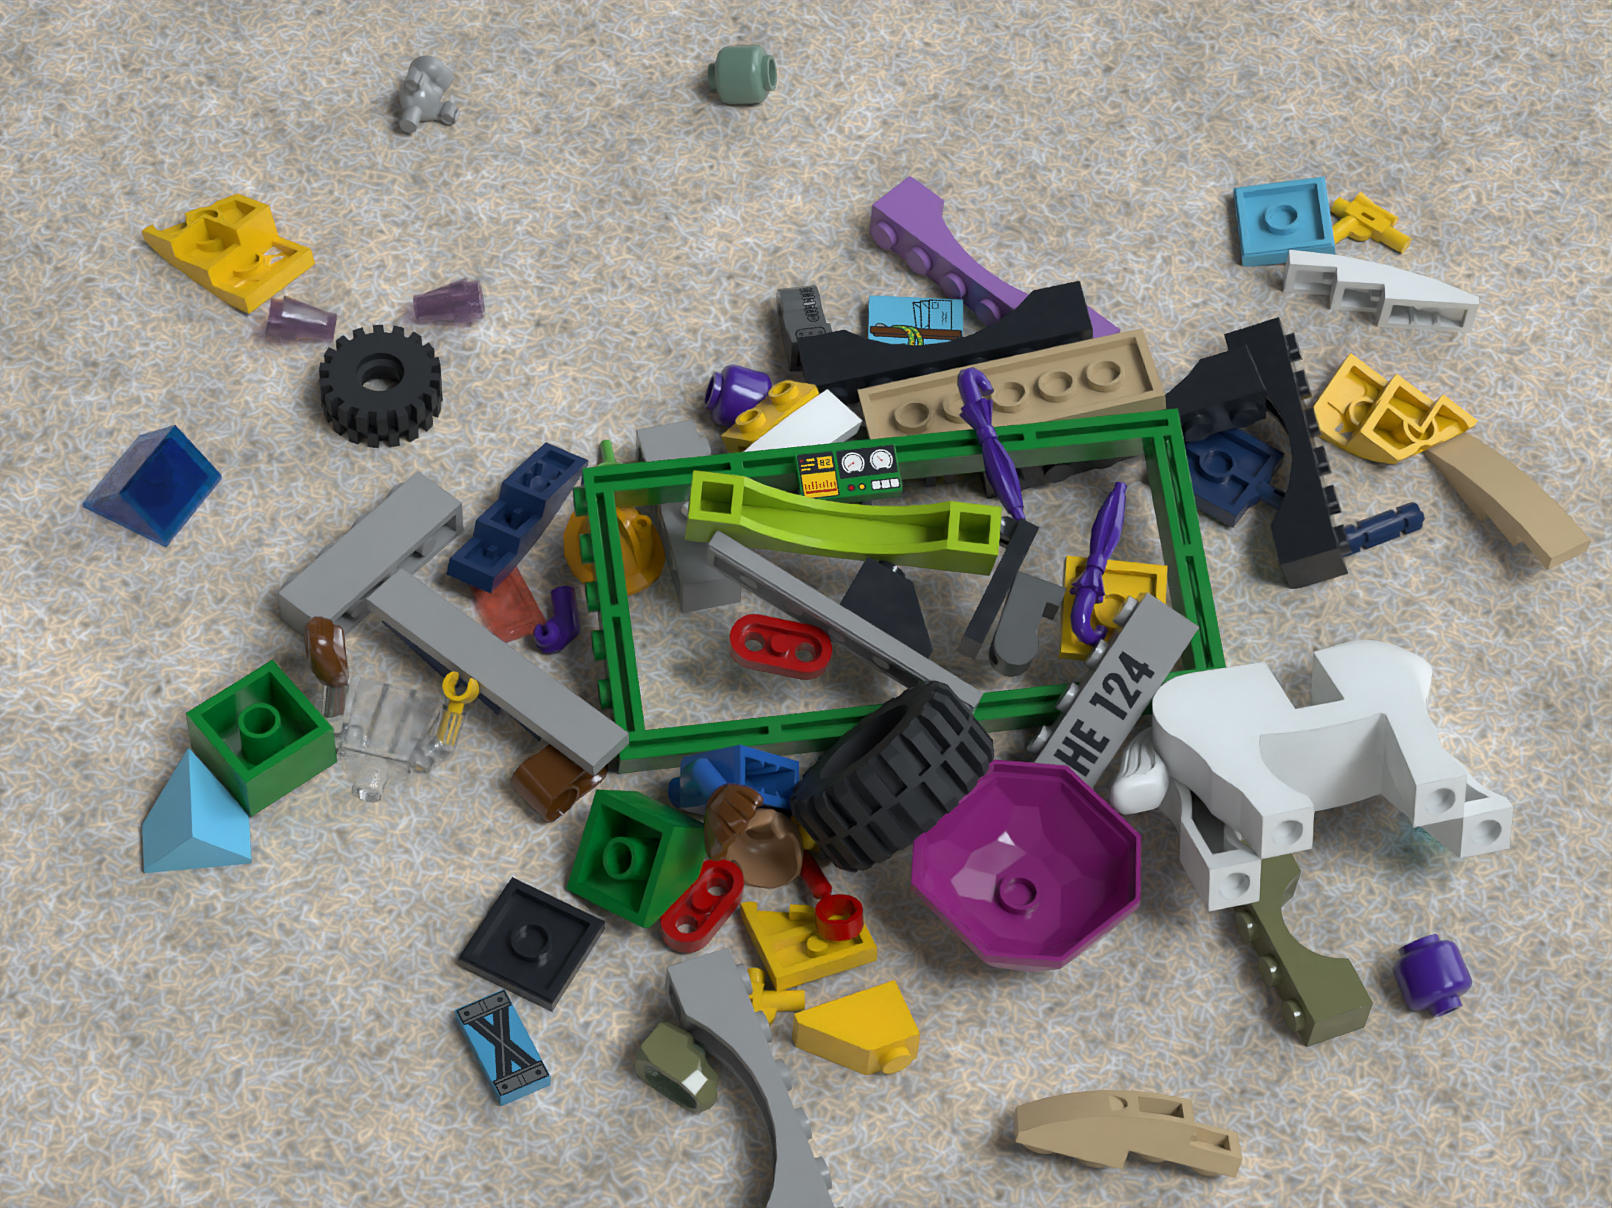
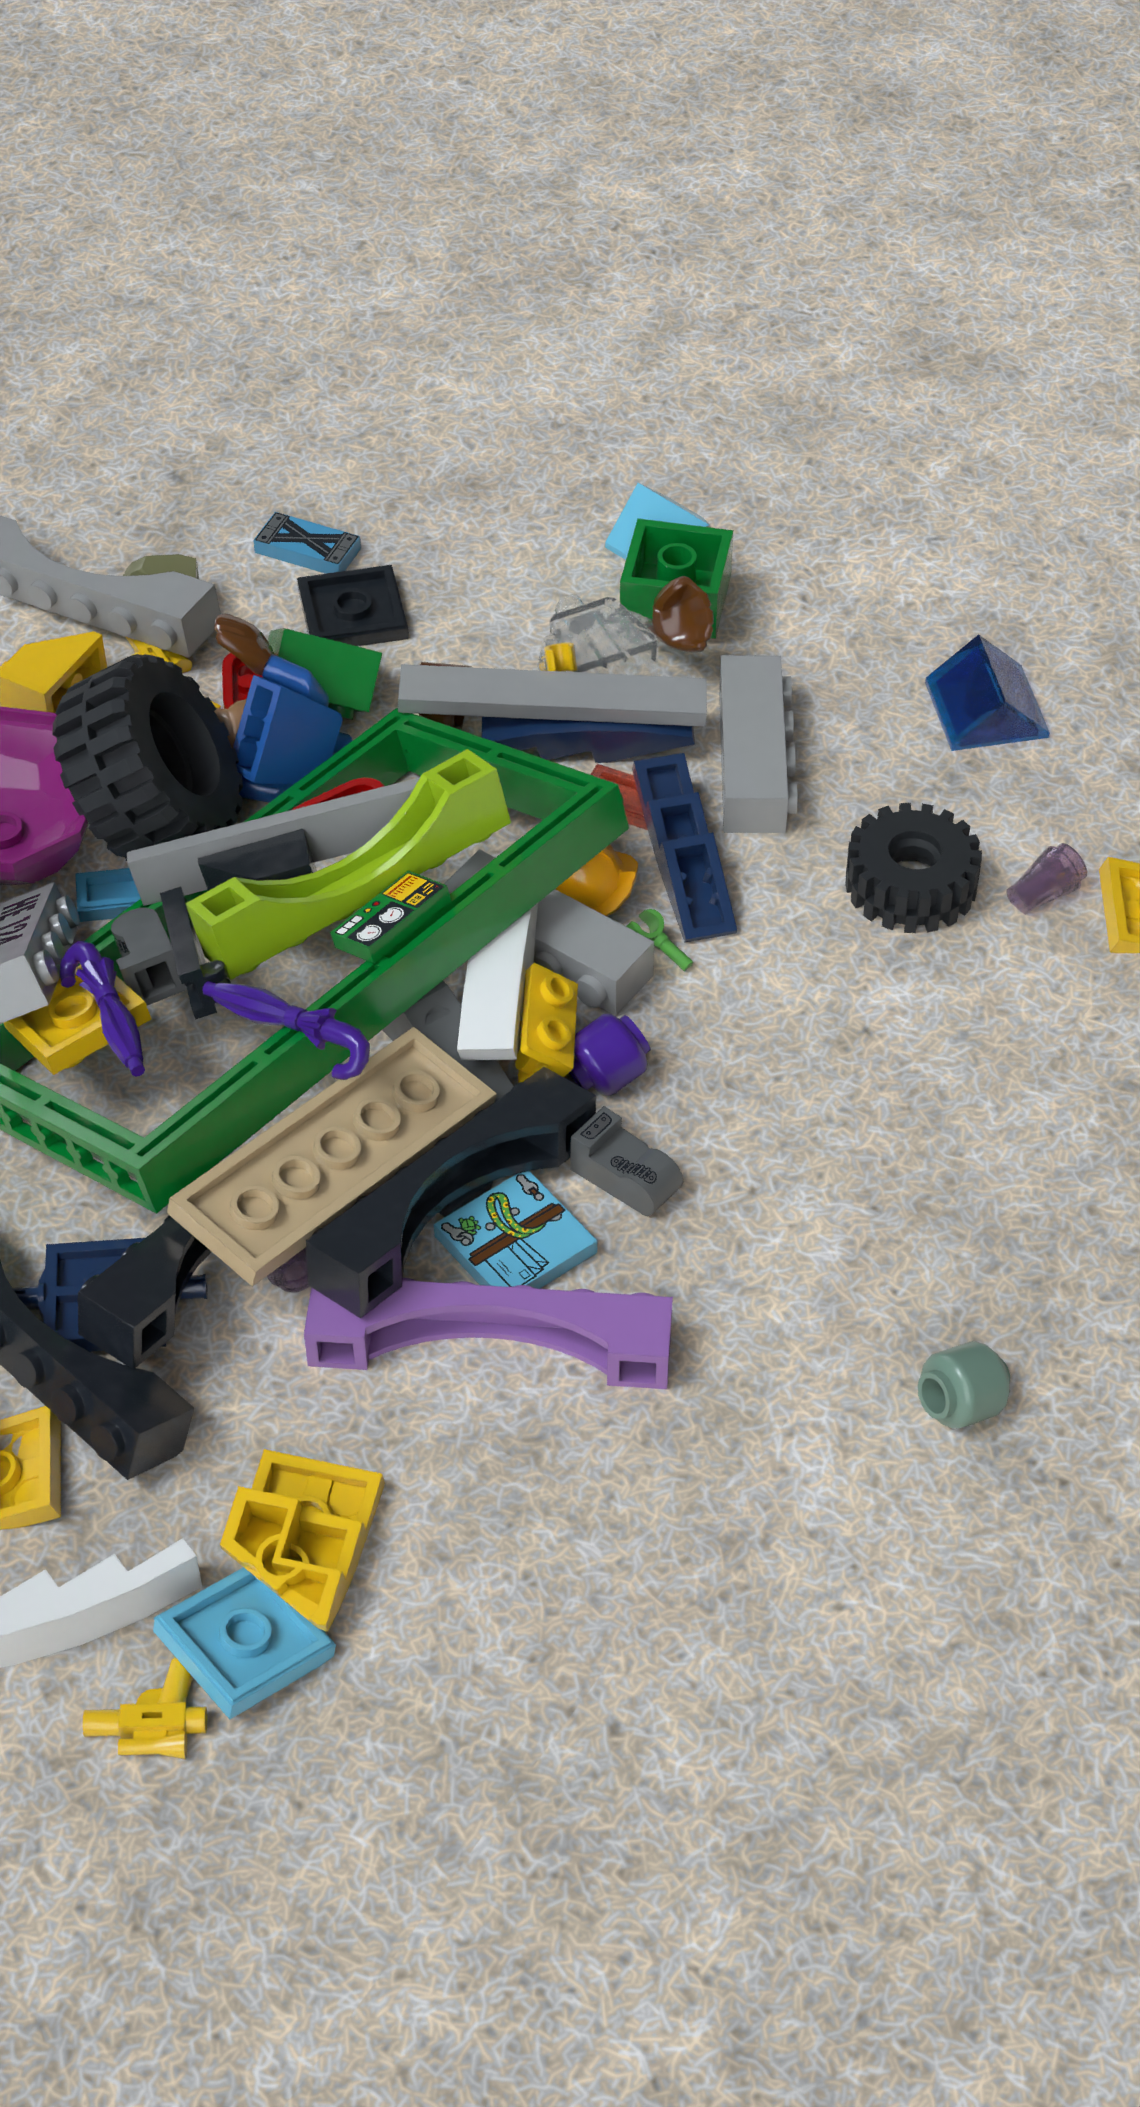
camera: 145 degrees right, 5 degrees down
(451, 303) = (944, 980): clear purple cone -> none
(1202, 253) = (303, 1530): none -> yellow slope

